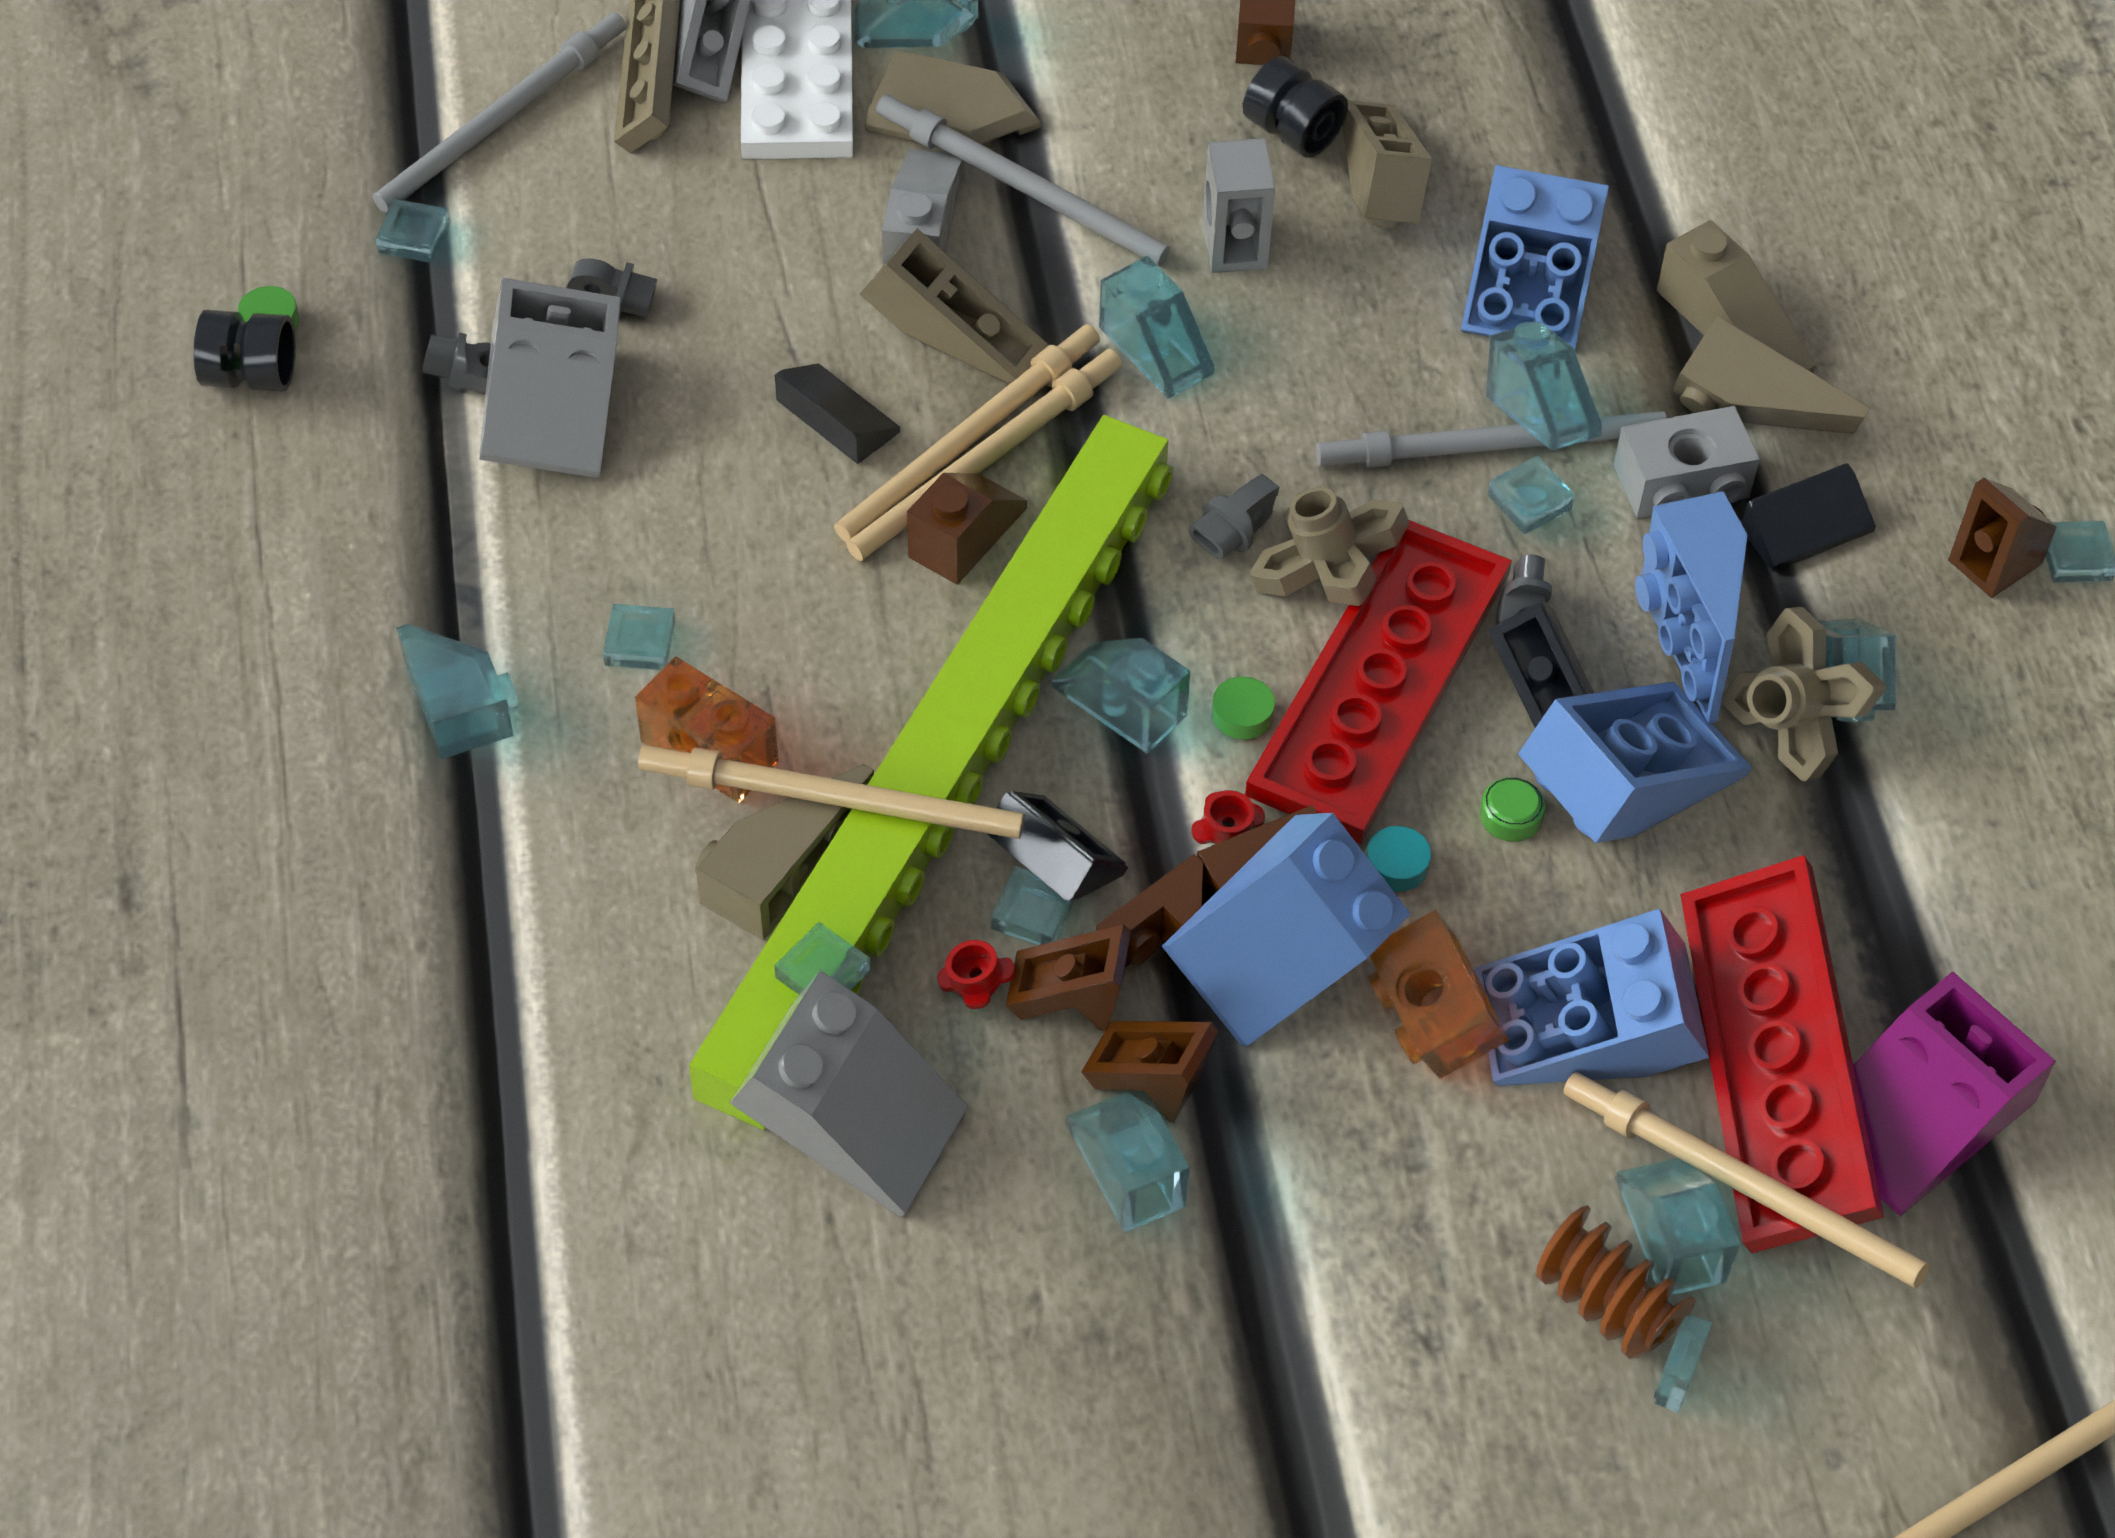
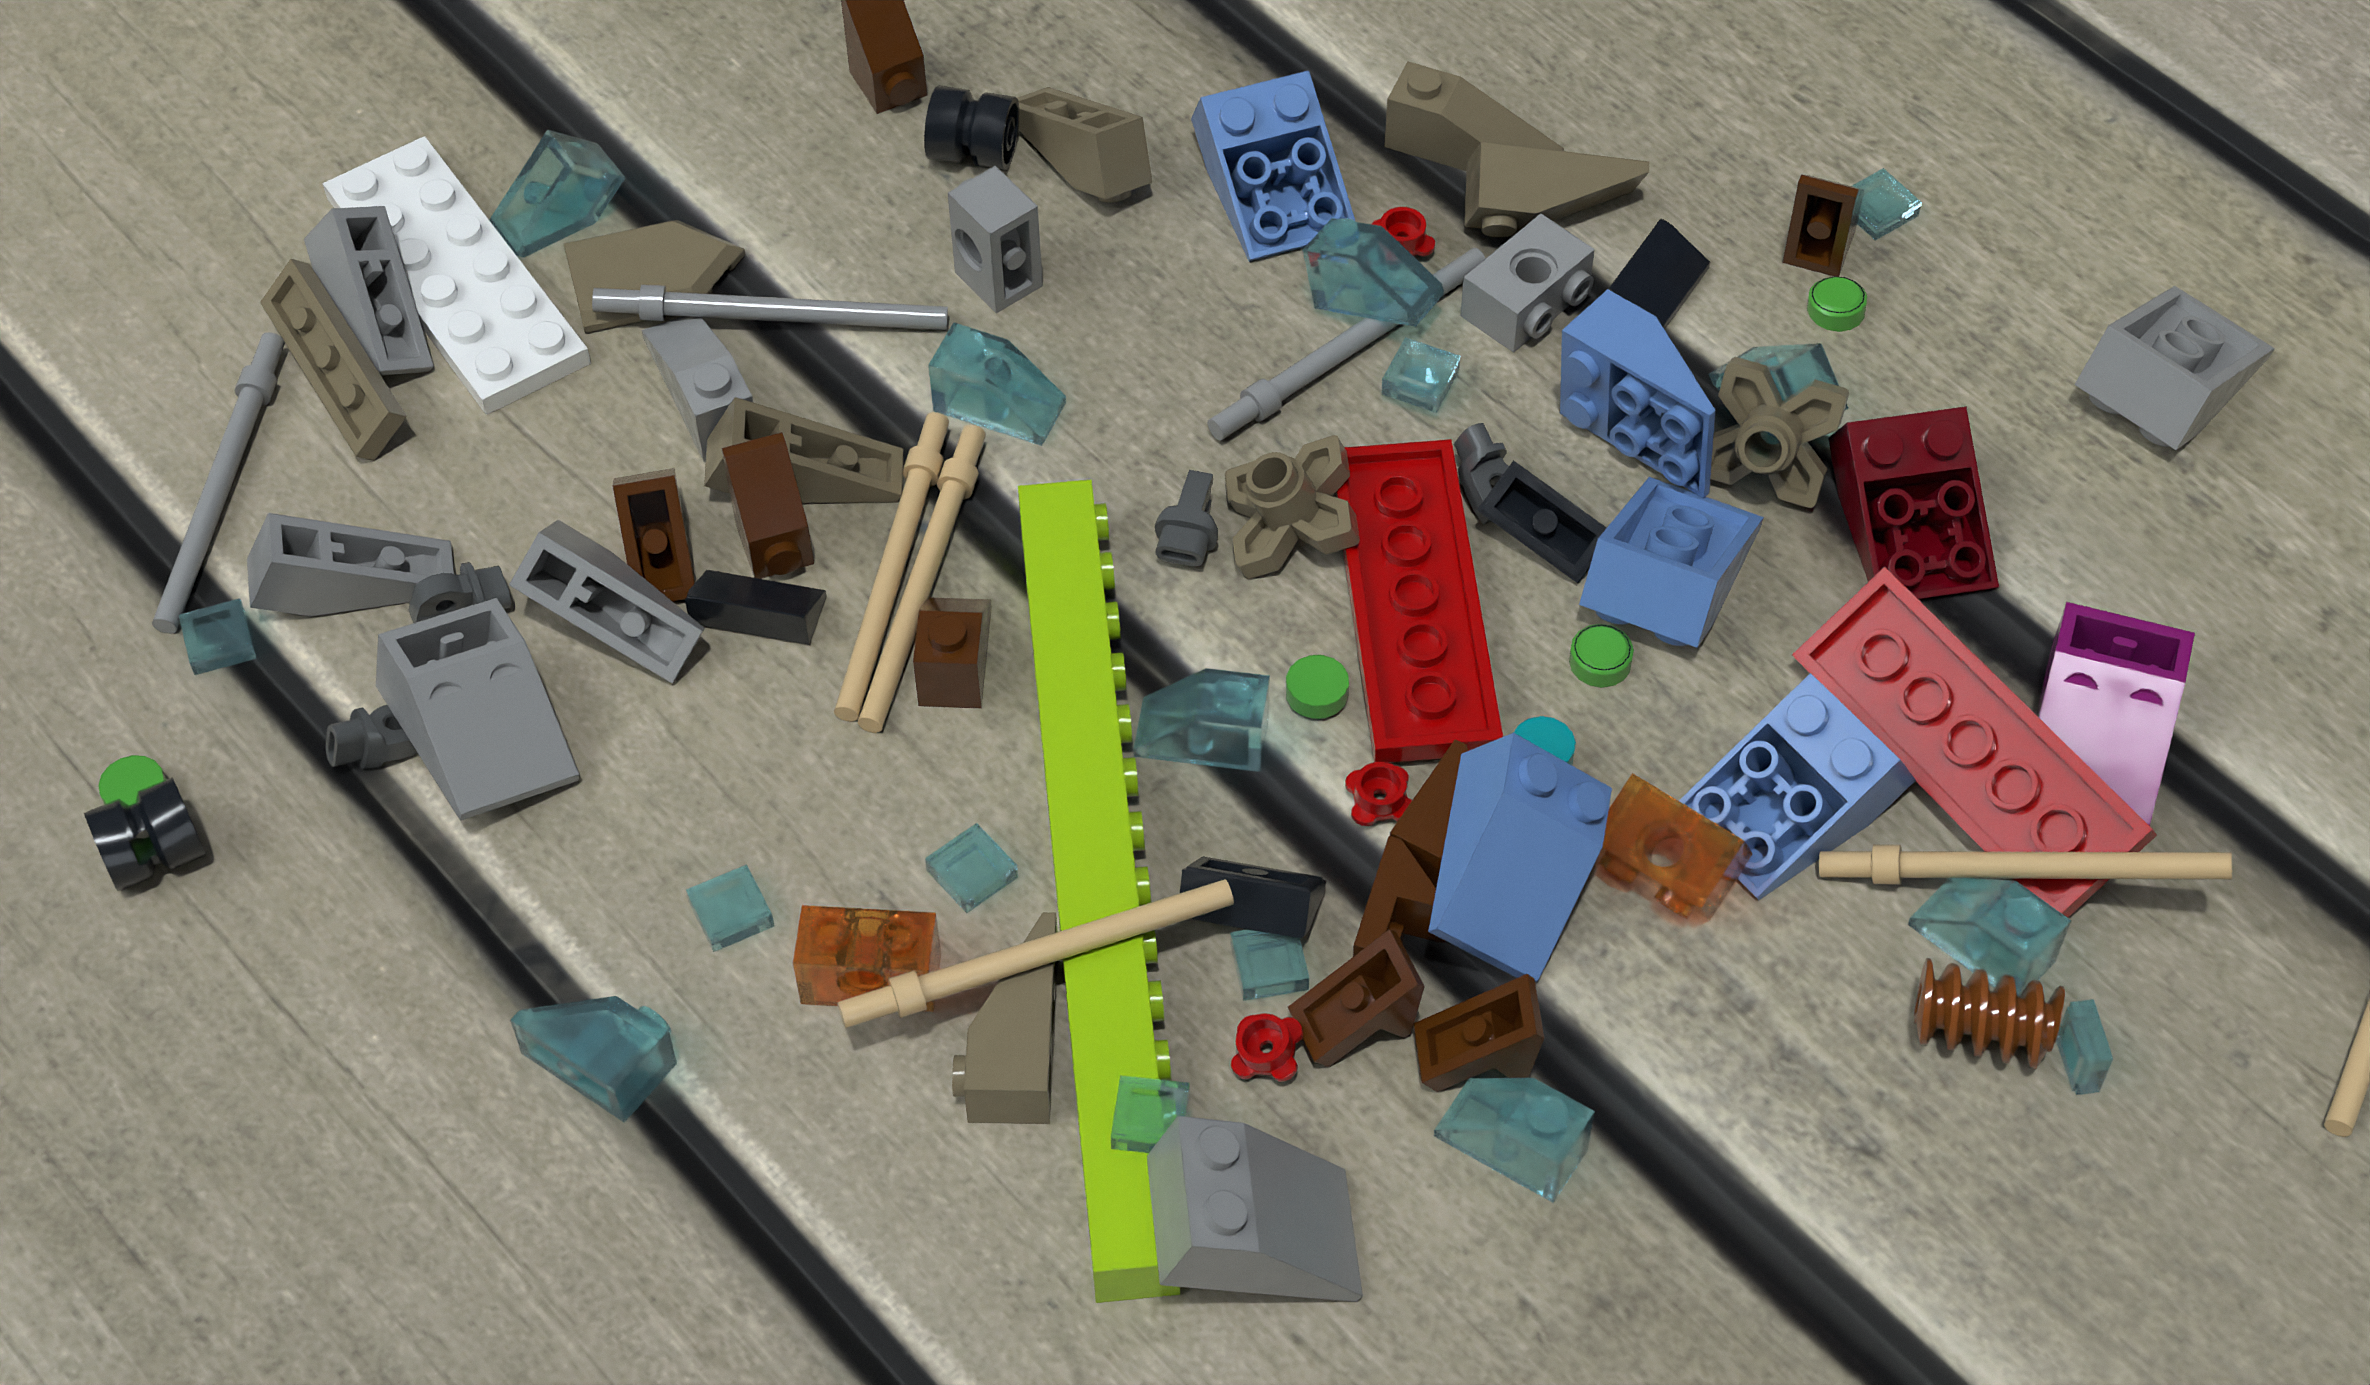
camera: 30 degrees left, 0 degrees up
(535, 220) = (337, 567): none -> light grey slope
(712, 341) = (606, 599): none -> light grey slope
(791, 311) = (655, 530): none -> reddish brown slope
(849, 705) = (971, 867): none -> clear light blue tile
(890, 332) = (767, 506): none -> reddish brown slope
(1609, 369) = (1409, 229): none -> red plate
(1897, 825) = (1916, 501): none -> dark red slope
(1969, 619) = (1837, 303): none -> bright green piece

